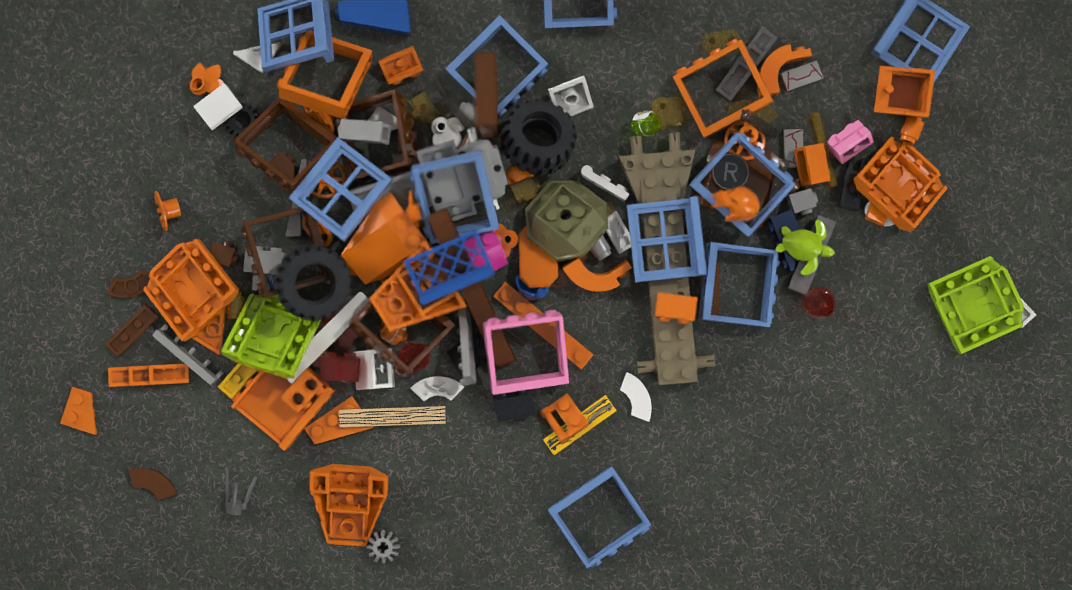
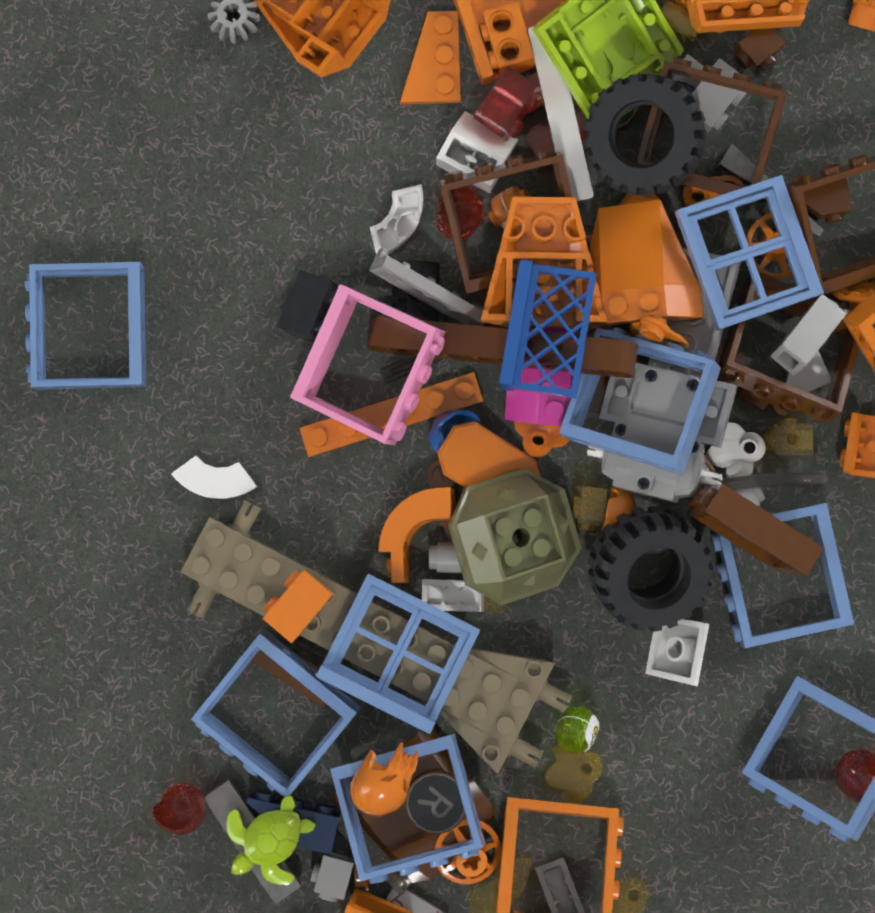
camera: 125 degrees right, 0 degrees up
(392, 416) = (398, 136): tan sticker -> none
(569, 413) = (248, 373): orange plate -> none
(594, 415) = (227, 378): yellow tile -> none
(604, 183) = (532, 620): white plate -> none
(759, 123) = (477, 885): clear smoke axle -> none

